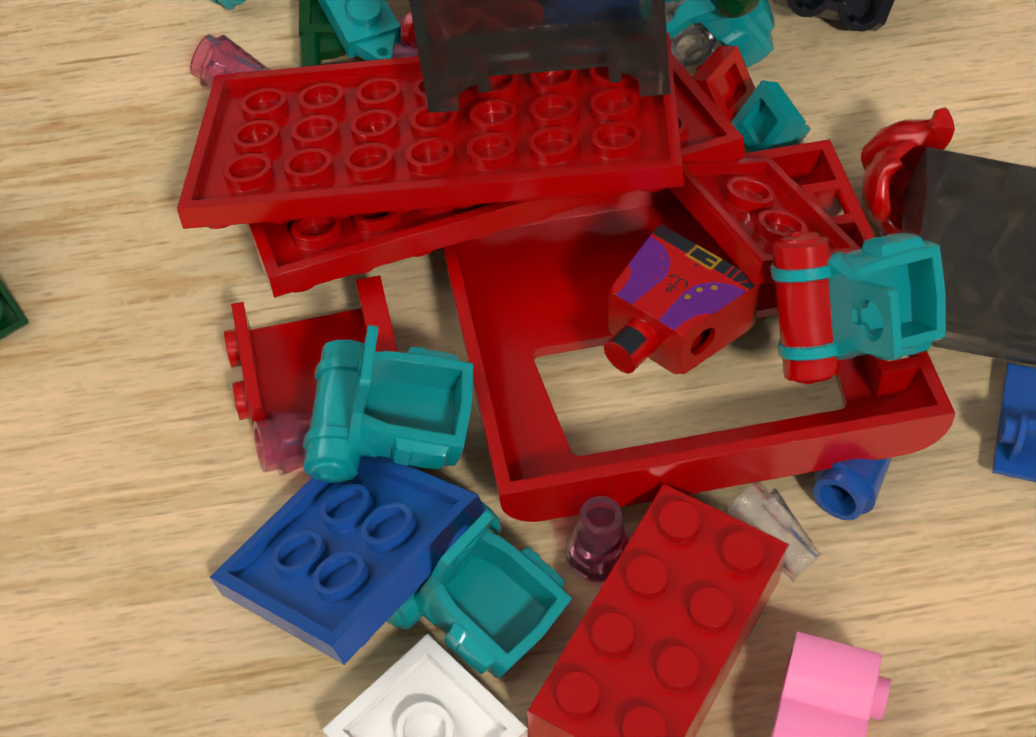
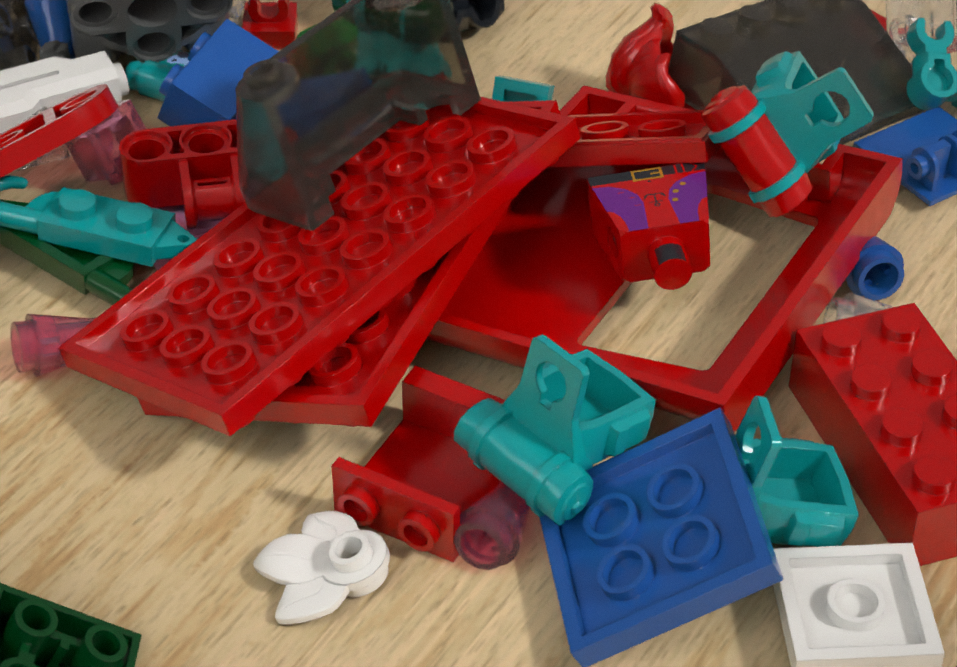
camera: 50 degrees left, 15 degrees down
(171, 371) = (323, 566): none -> white plate
(597, 539) = (794, 399): clear pink cone -> none

